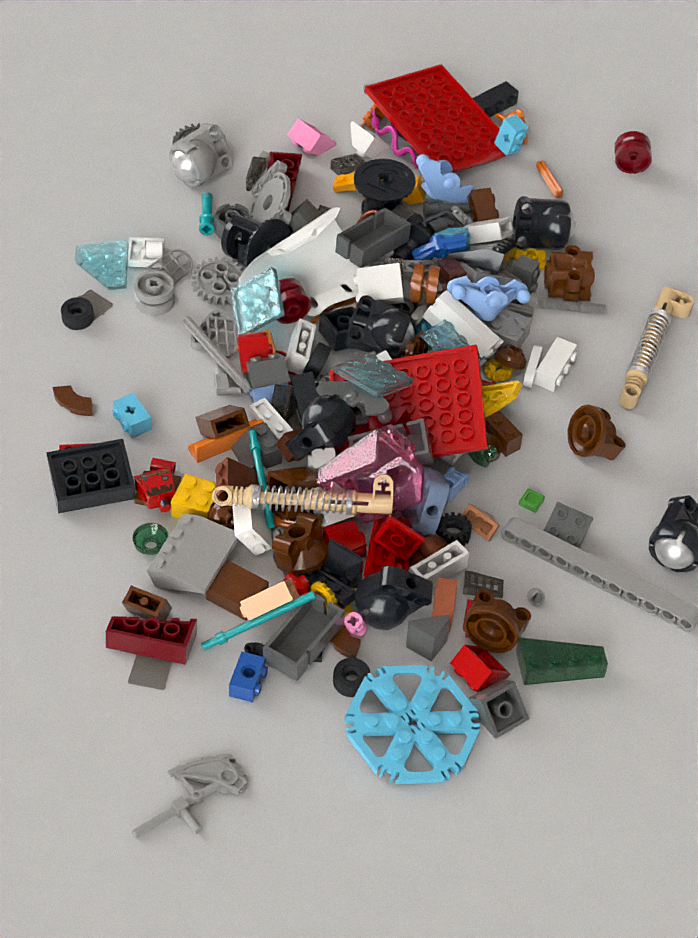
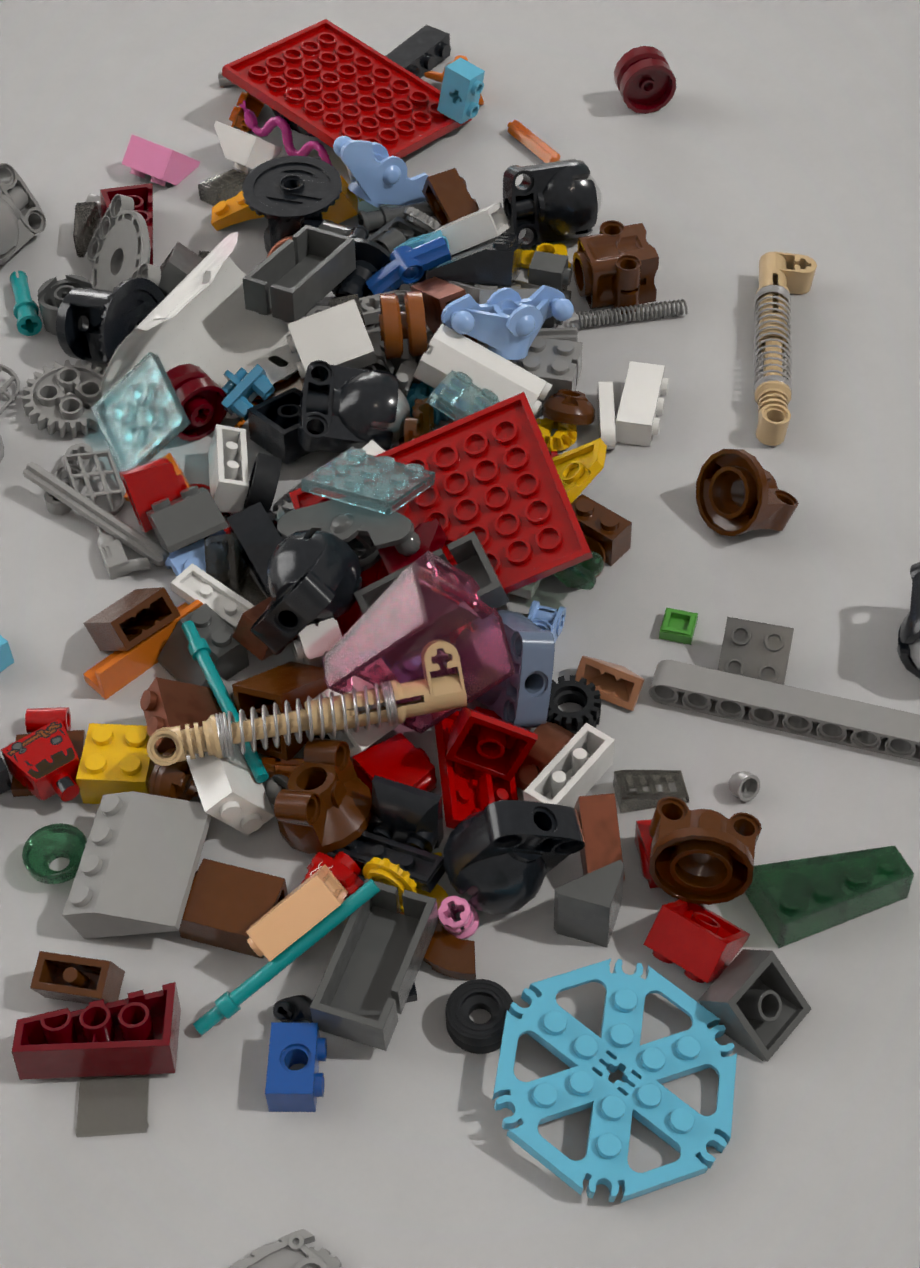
camera: 10 degrees left, 0 degrees up
(316, 306) = (239, 391): none -> dark azure hips

